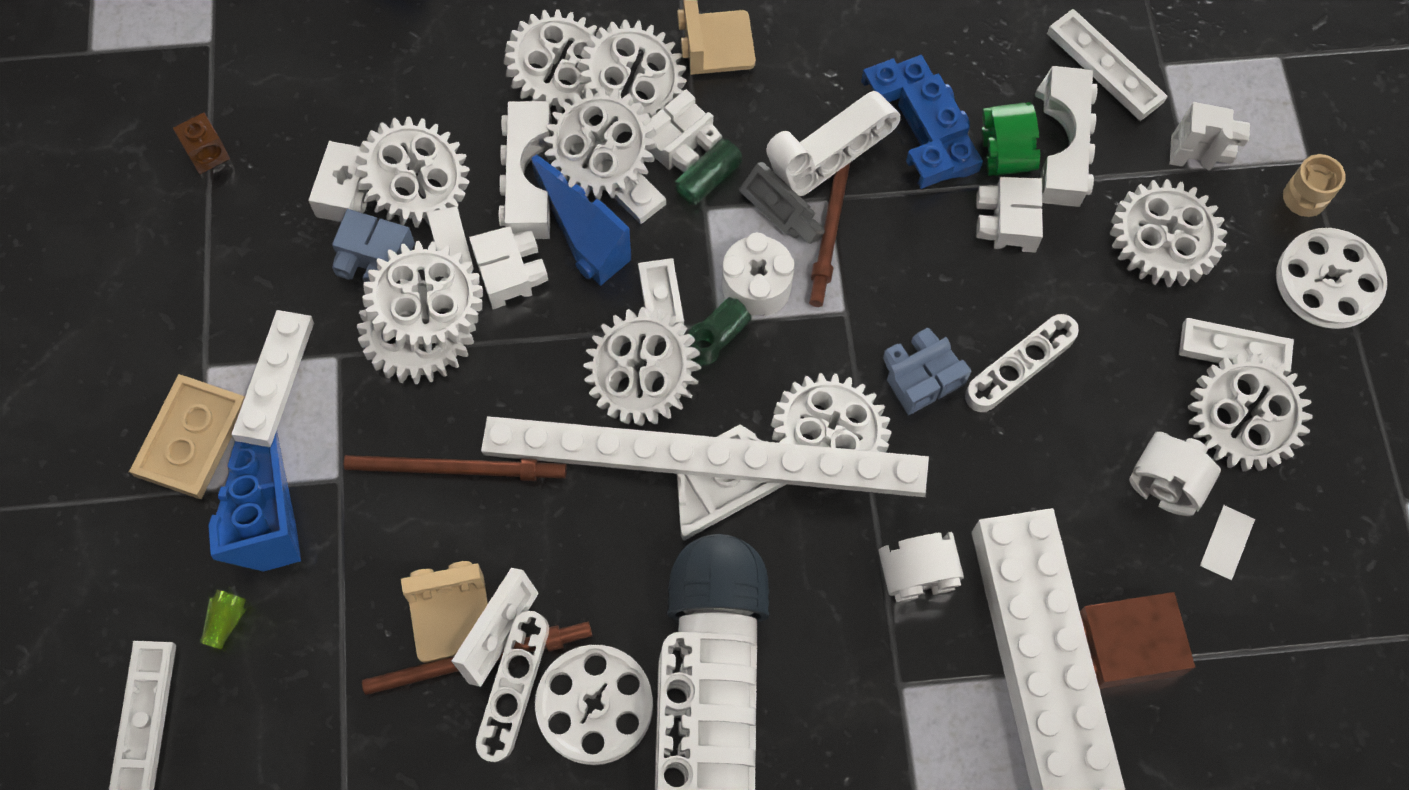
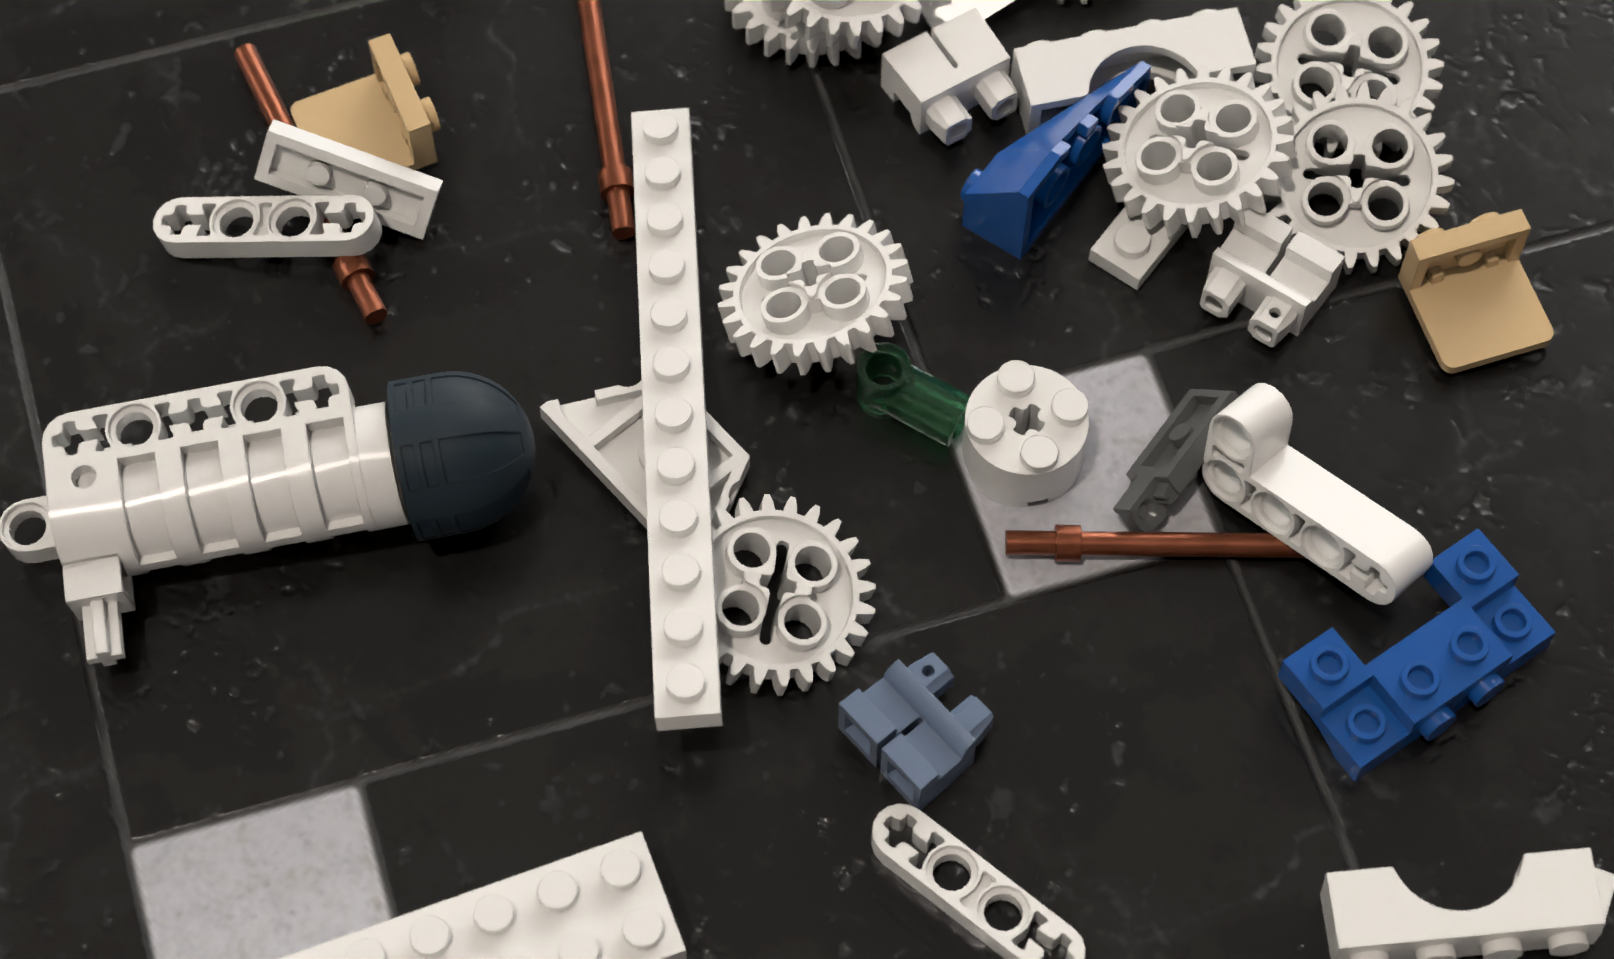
camera: 80 degrees right, 5 degrees down
(589, 686) = (251, 324): white wedge -> none
(661, 288) = (961, 305): white plate -> none
(708, 171) = (1209, 333): clear green axle -> none
(921, 565) = (546, 760): white brick -> none
(1010, 138) = (1414, 800): green brick -> none
(1016, 213) = (1268, 839): white hips -> none

